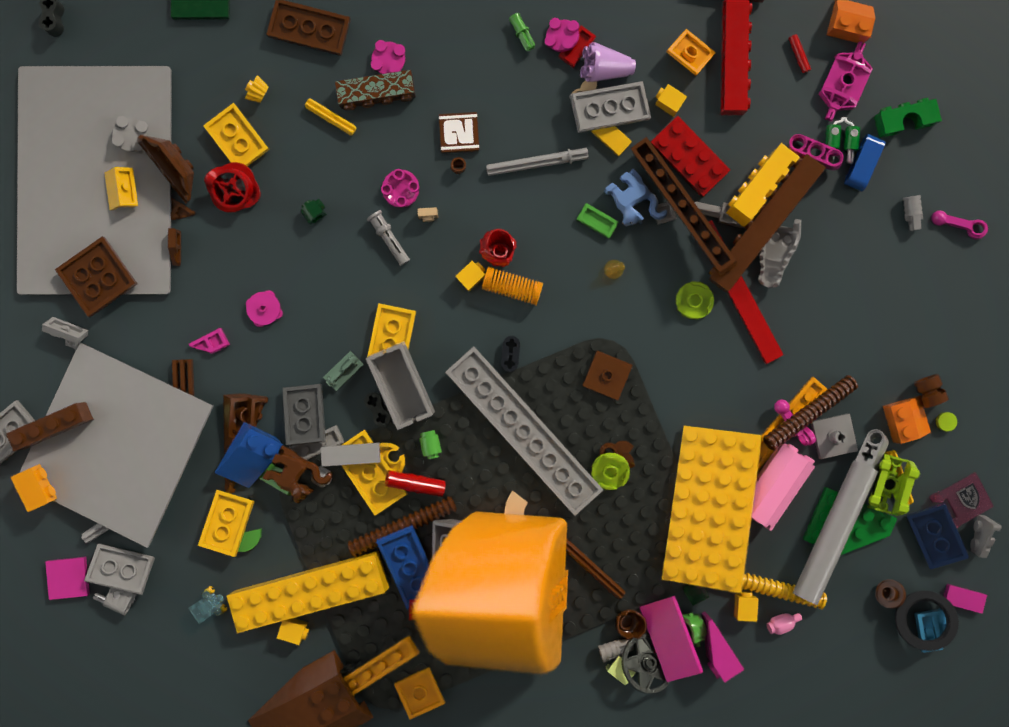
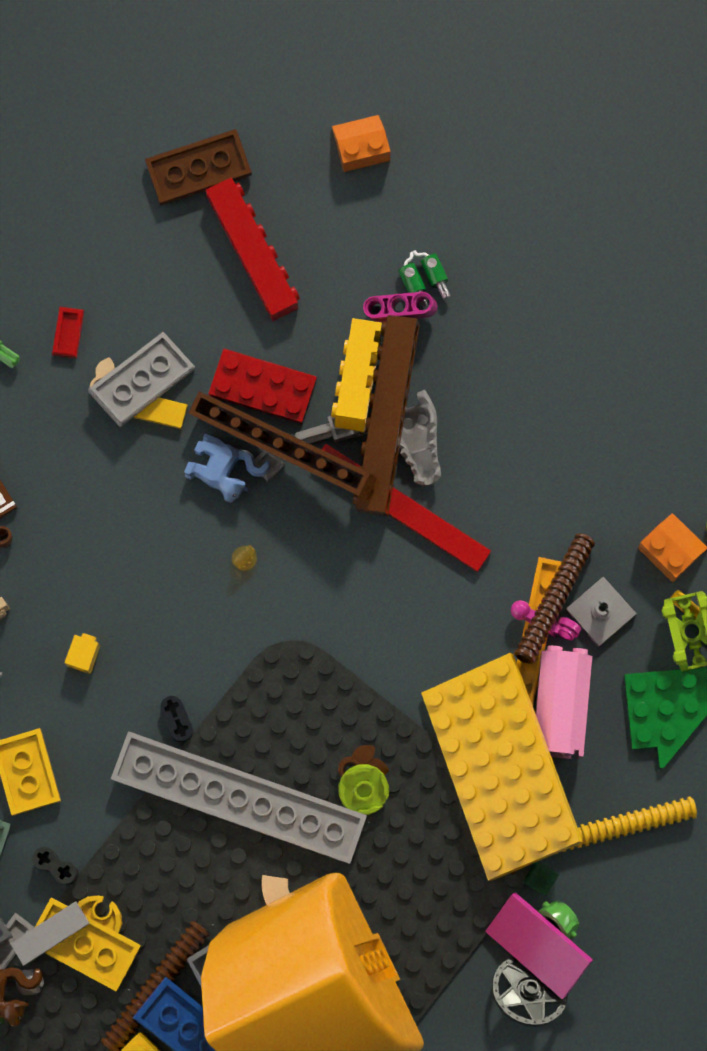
camera: 25 degrees left, 10 degrees down
(400, 385) = (66, 821): light grey piece -> none
(415, 483) = (143, 926): red axle -> none
(430, 444) = (137, 872): bright green brick -> none
(497, 247) = (96, 604): red hair -> none
(523, 290) = (168, 635): light orange piece -> none
(537, 161) = (92, 483): light grey axle -> none
(562, 35) = (44, 328): dark pink piece -> none
(594, 570) = (407, 916): reddish brown axle -> none
(597, 221) = (196, 514): bright green tile -> none
(605, 63) = (110, 335): lavender cone -> none
(607, 375) = (301, 682): reddish brown plate -> none
(613, 649) = (482, 998): light grey hinge -> none
(617, 671) = (498, 1019): yellowish green panel -> none
(630, 624) = (484, 956): reddish brown hair -> none
(670, 100) = (205, 336): yellow brick -> none
(691, 52) = (200, 271): light orange slope -> none
(694, 300) = (356, 544): lime tile -> none
(721, 657) = (604, 930): dark pink slope -> none
(746, 606) = (607, 862): yellow brick -> none
(783, 623) = (662, 858): bright pink plant -> none
(799, 53) = (324, 208): red piece -> none
(838, 94) = (387, 229): dark pink plate -> none
(841, 519) = (655, 699): light grey piece -> none
(864, 162) = (462, 289): blue beam -> none
(913, 212) = (547, 313): light grey hinge -> none
(923, 113) = (496, 200): green arch -> none
(931, 391) = (679, 500): reddish brown wheel -> none
(940, 218) = (583, 304): dark pink piece -> none

